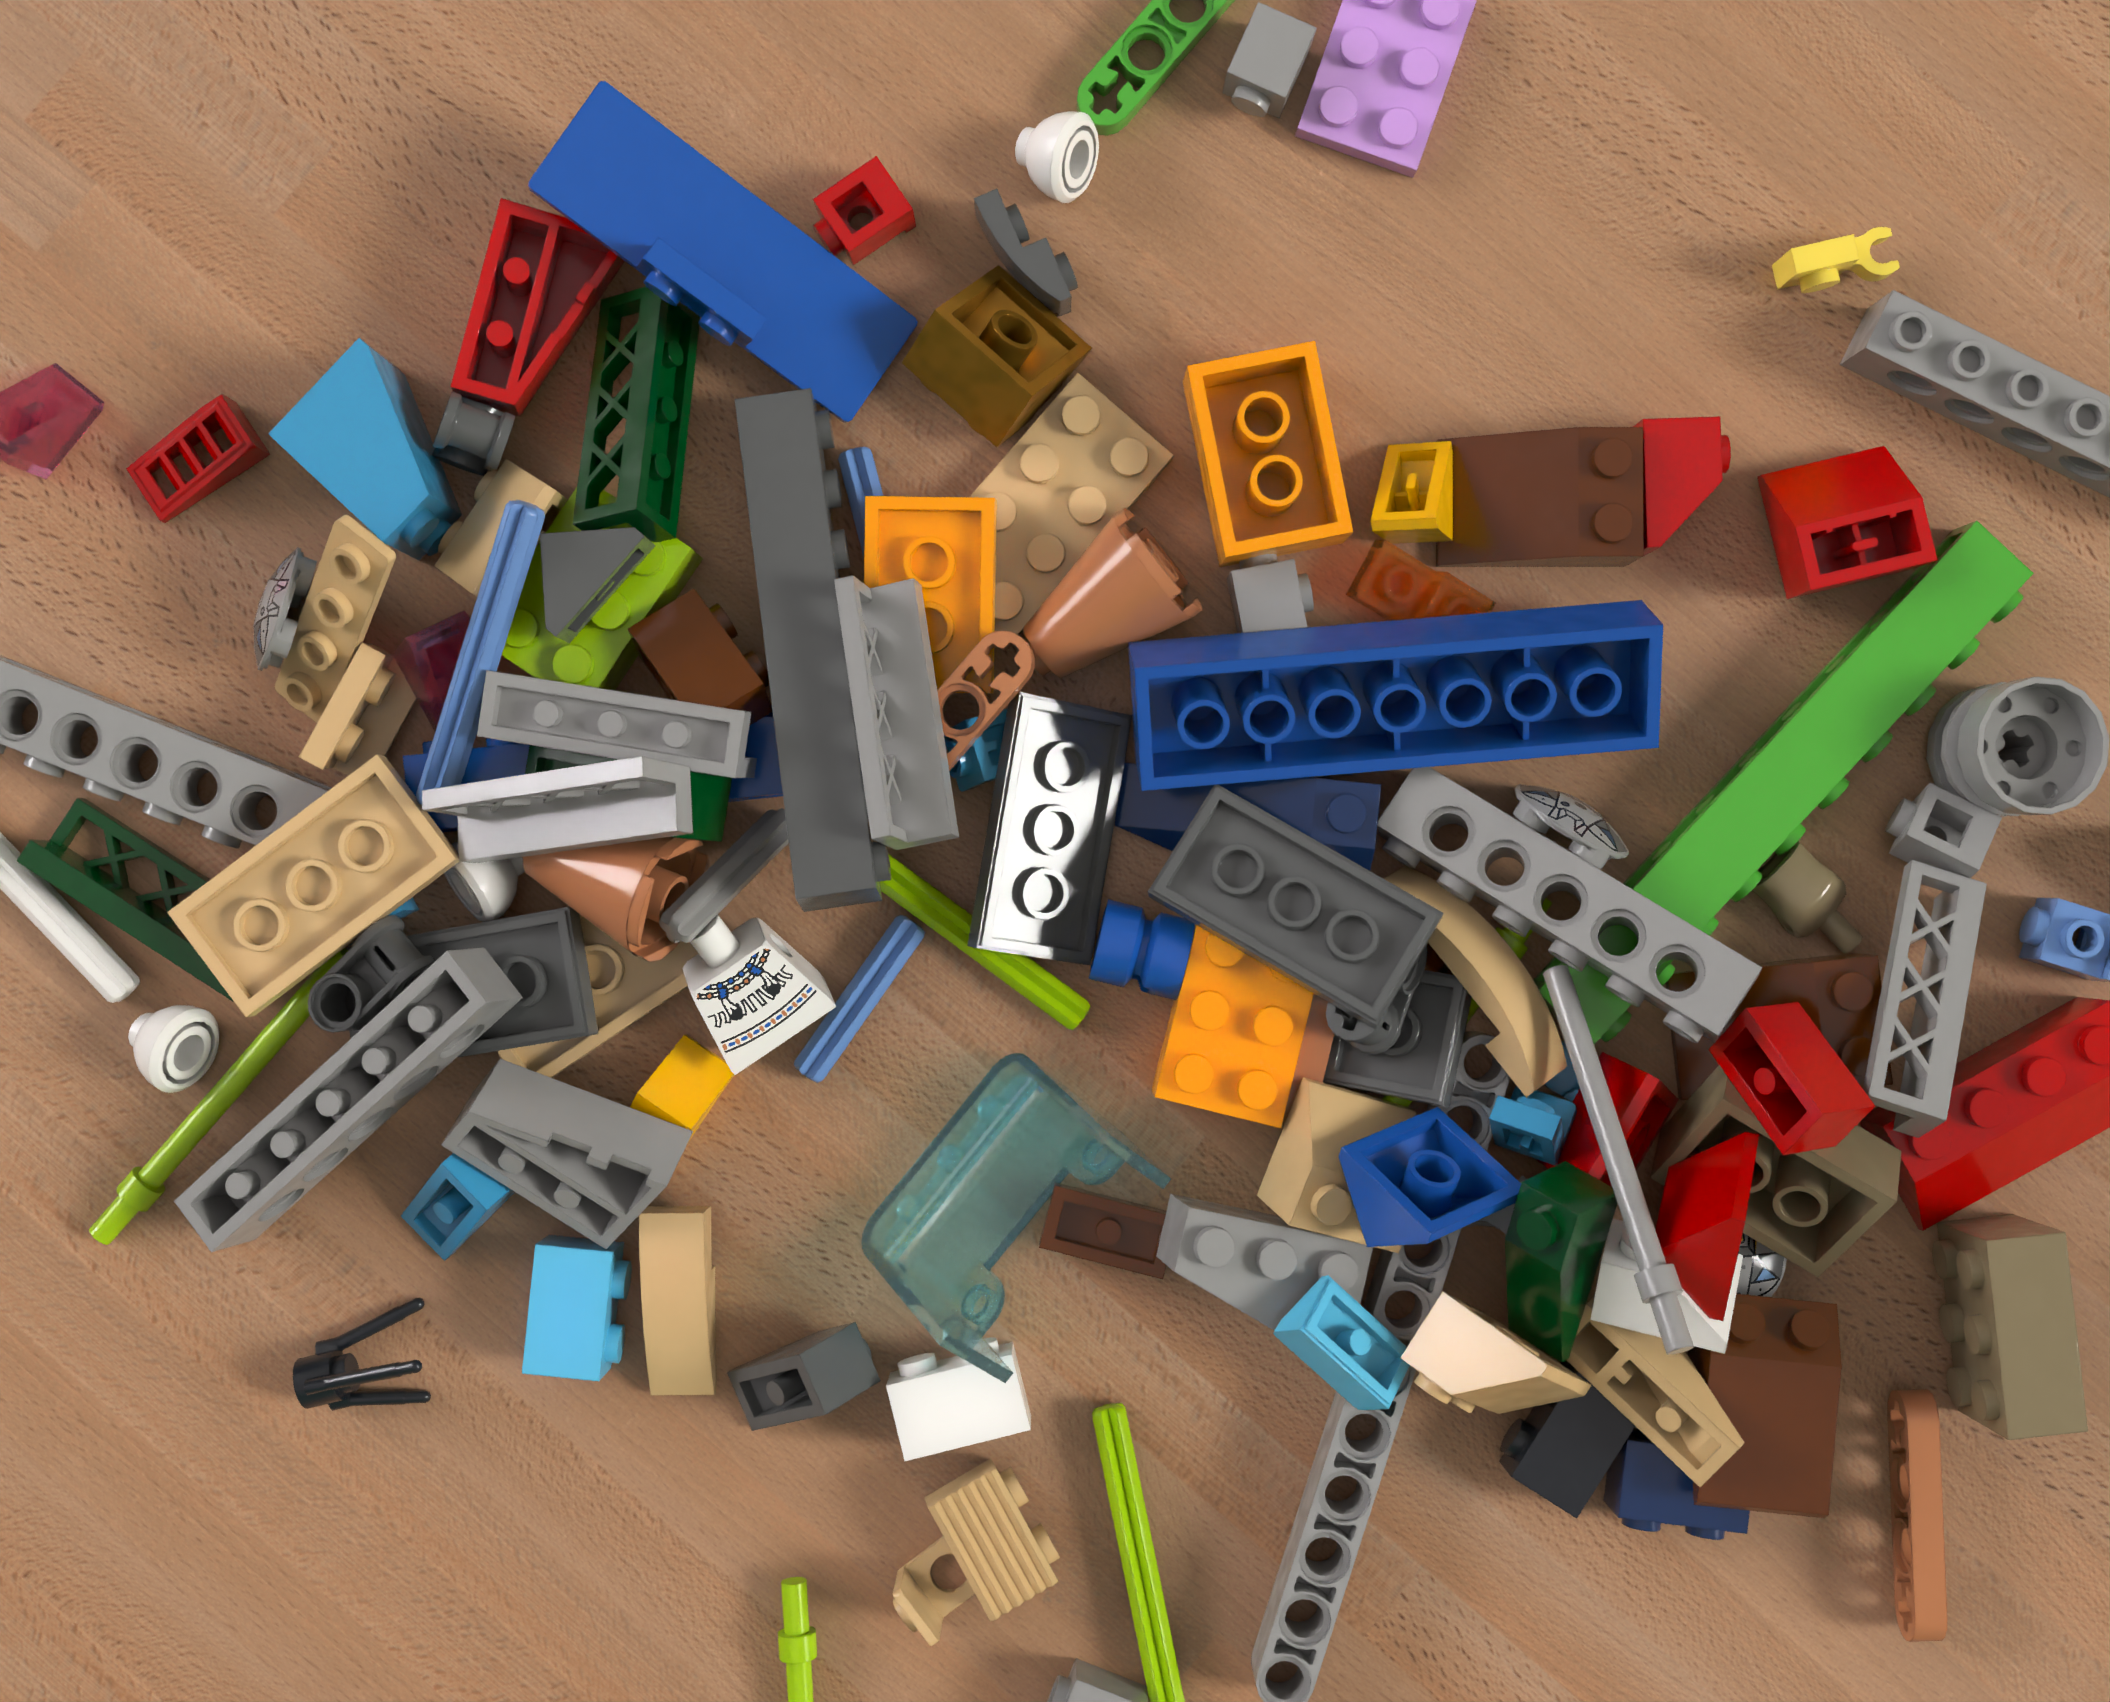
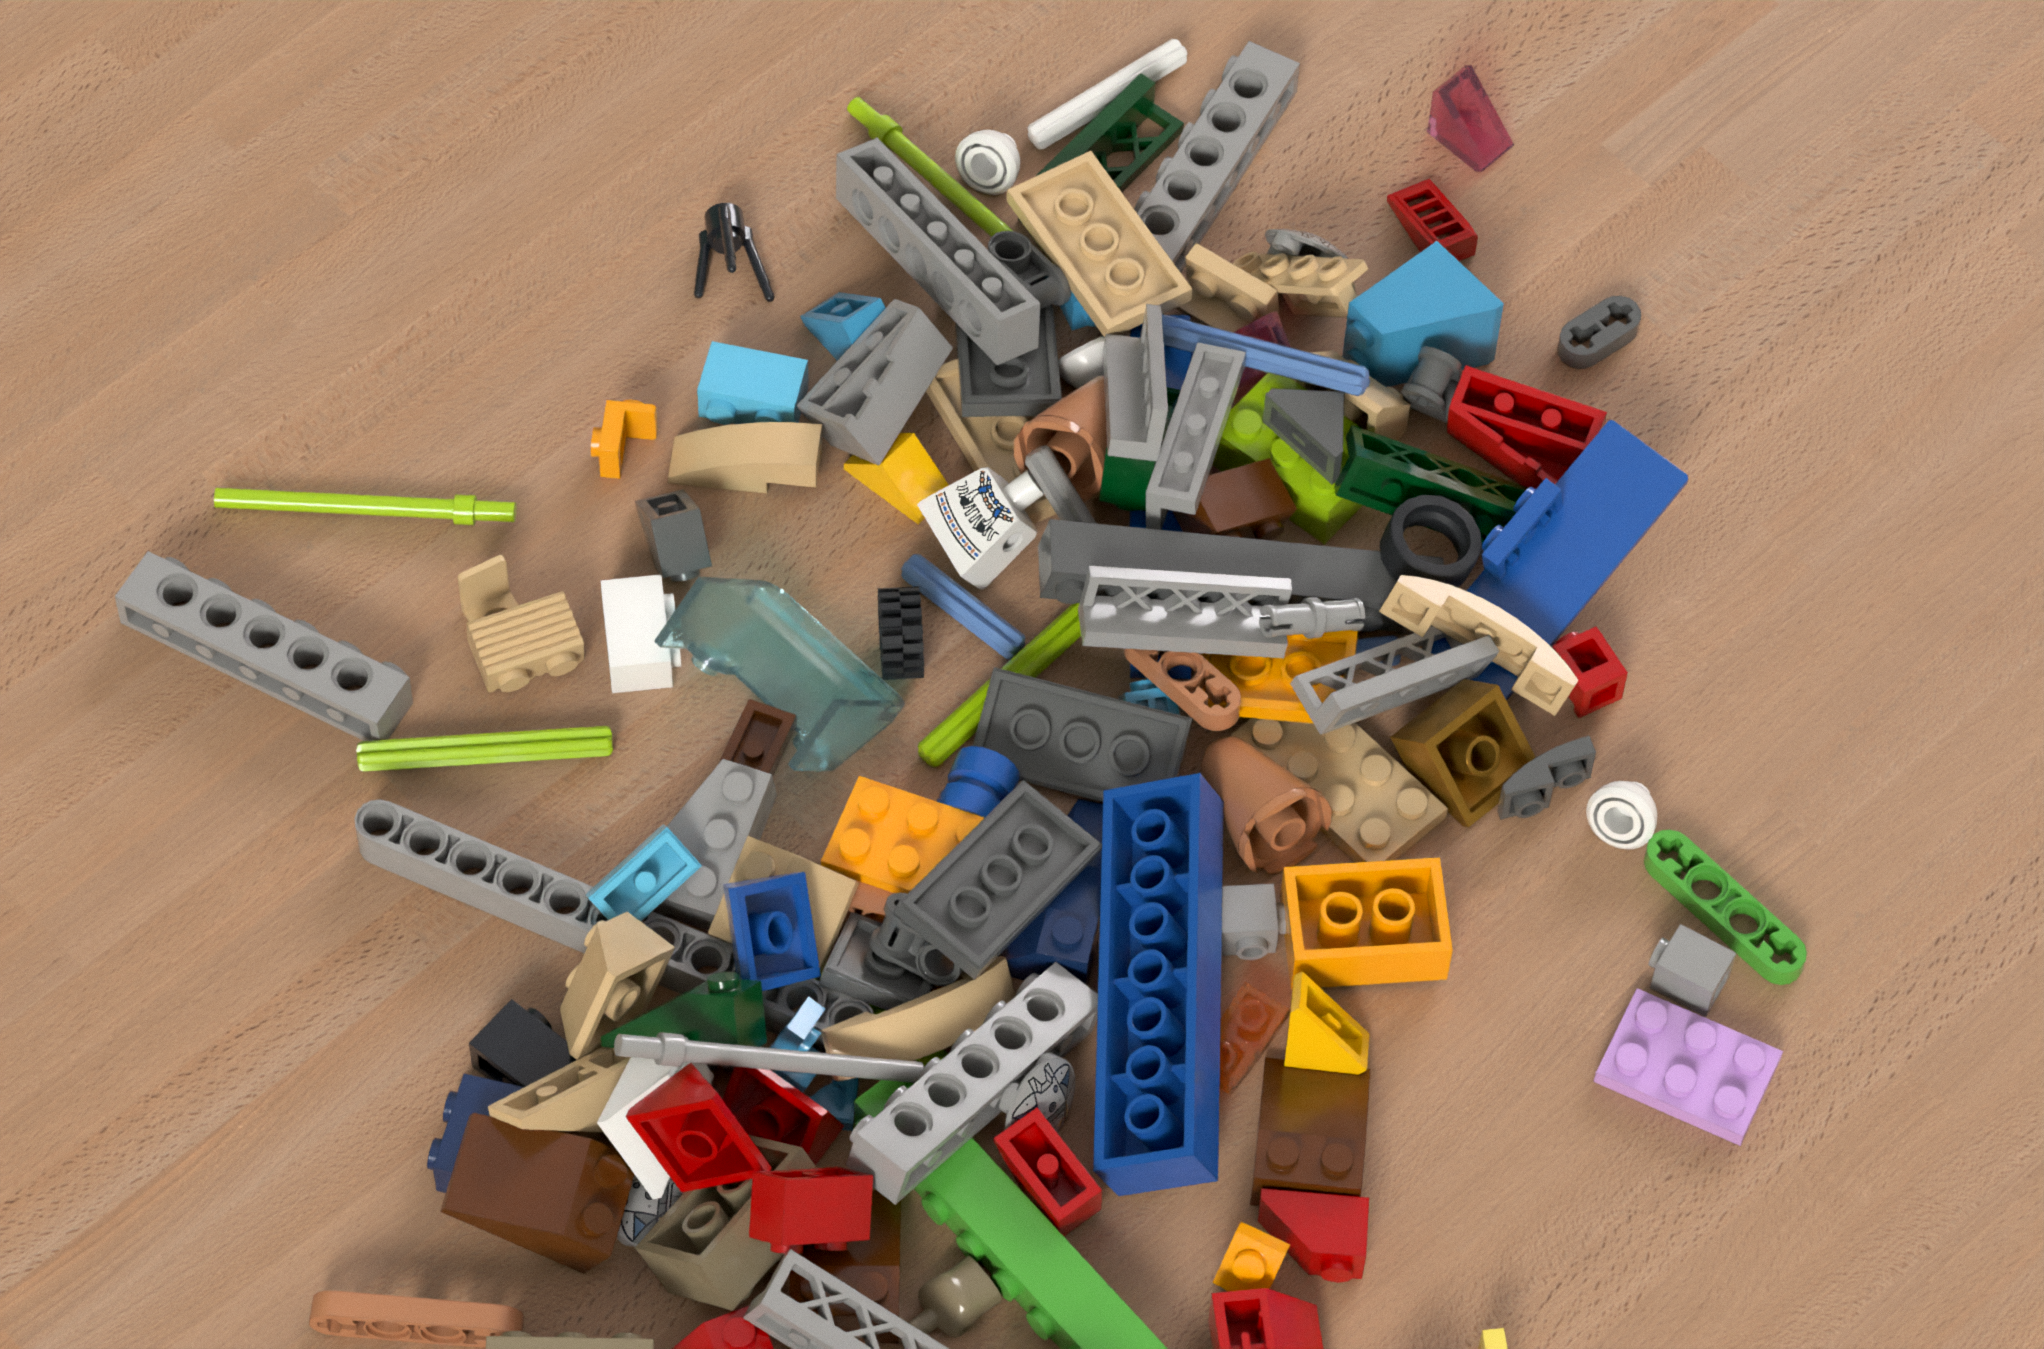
camera: 95 degrees right, 30 degrees down
(333, 241) = (1603, 338): none -> dark grey beam
(674, 1477) = (621, 421): none -> light orange bracket
(728, 364) = (1442, 516): none -> black tyre
(872, 550) = (1312, 617): none -> light grey pin
(884, 269) = (1466, 617): none -> tan slope
(930, 1071) = (900, 633): none -> black tyre
(943, 425) = (1390, 686): none -> light grey fence
(1664, 797) = (1049, 1172): none -> red slope
(1740, 553) = (1250, 1260): none -> light orange bracket

